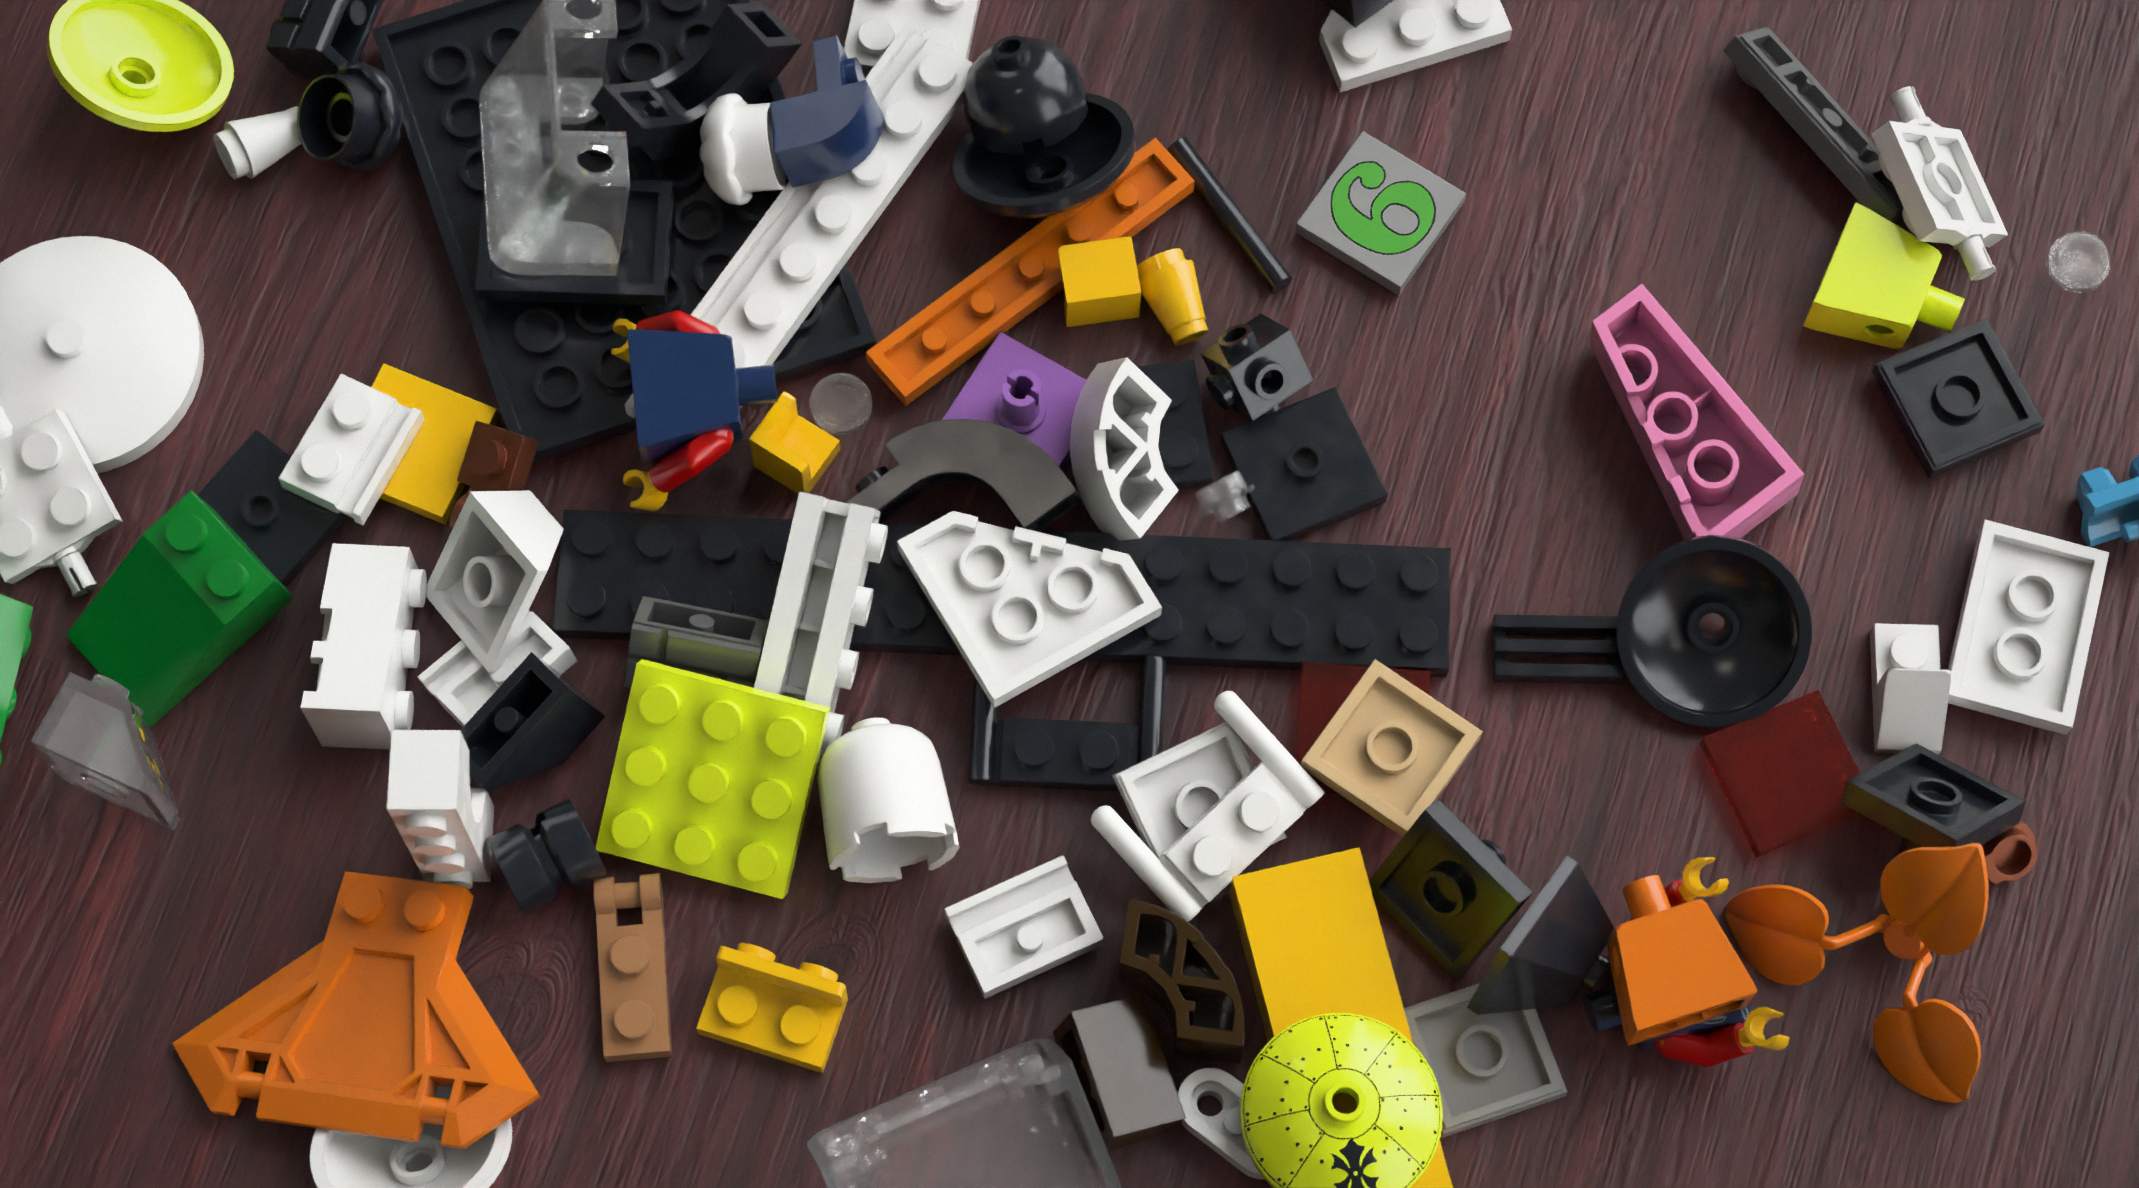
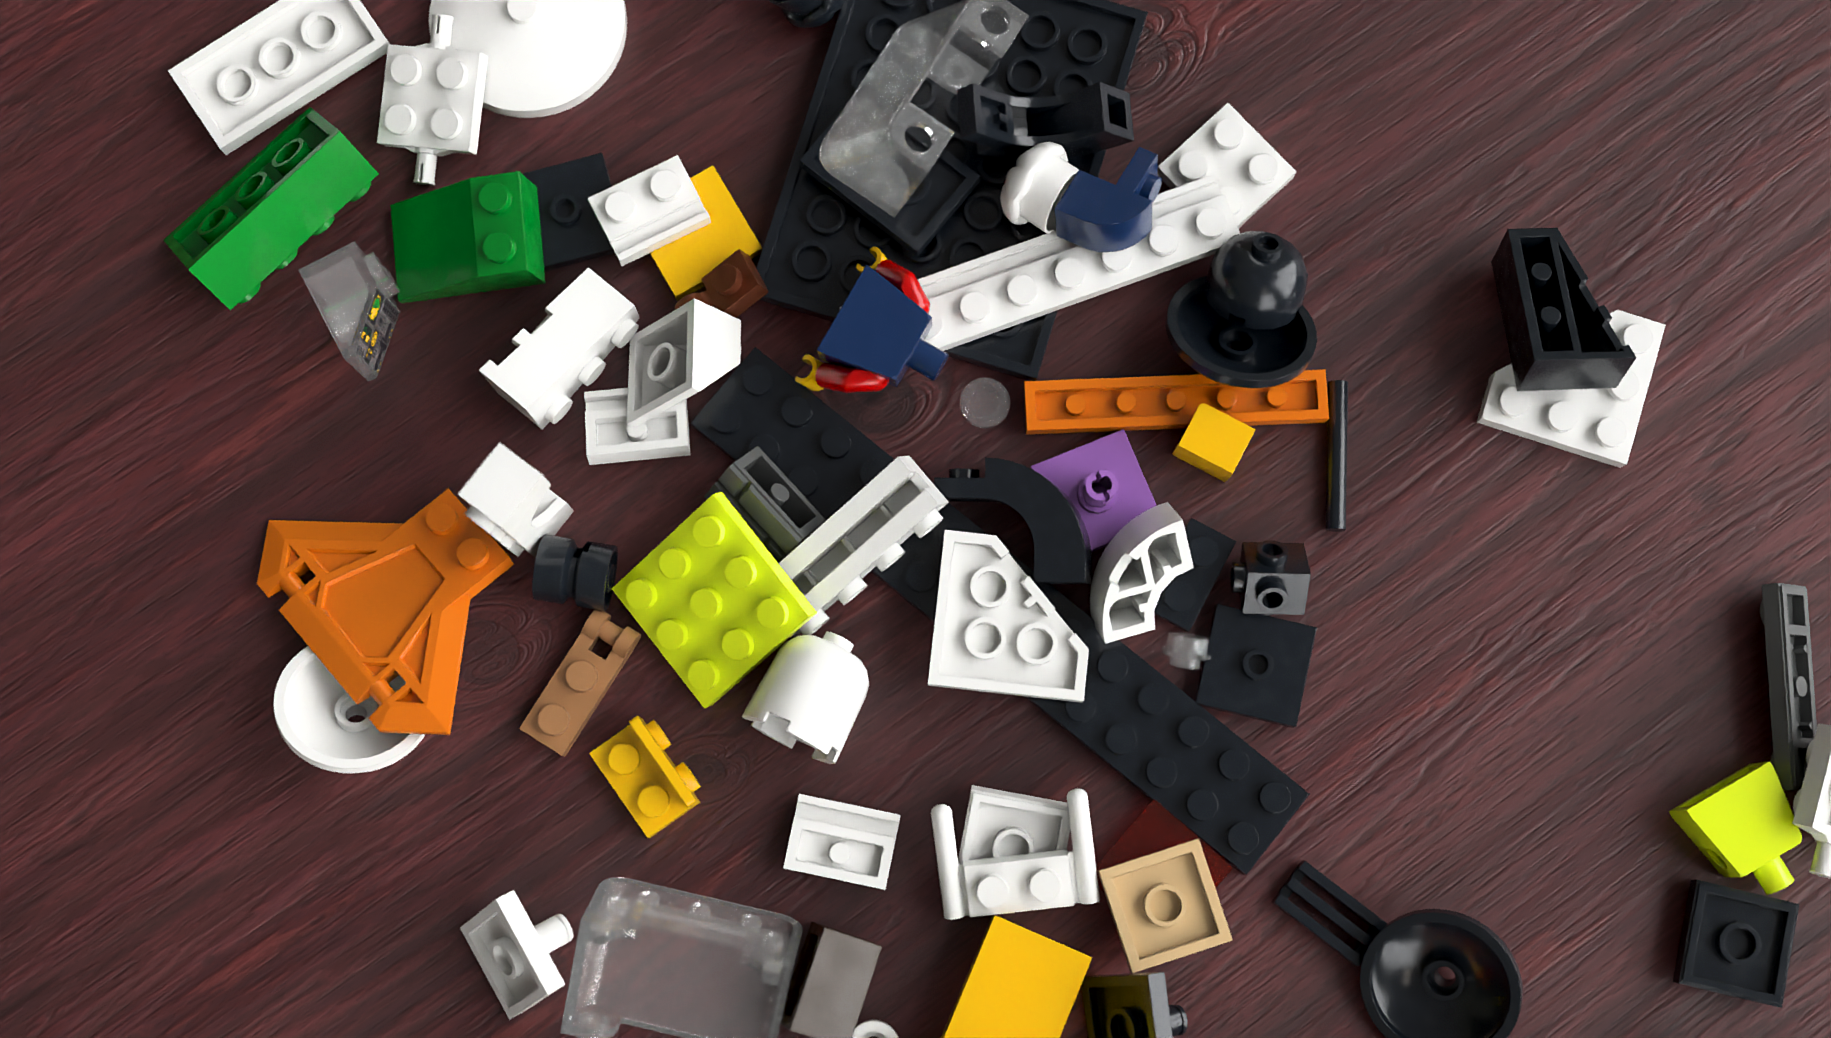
camera: 35 degrees right, 10 degrees up
(527, 725) = (622, 478): black slope -> none
(792, 447) = (931, 411): yellow panel -> none
(1066, 751) = (960, 746): black plate -> none
(1174, 295) = (1256, 486): yellow cone -> none
(1186, 979) = (916, 960): dark brown brick -> none
(1380, 213) = (1439, 527): light grey tile -> none
(1695, 432) = (1533, 839): bright pink wedge -> none

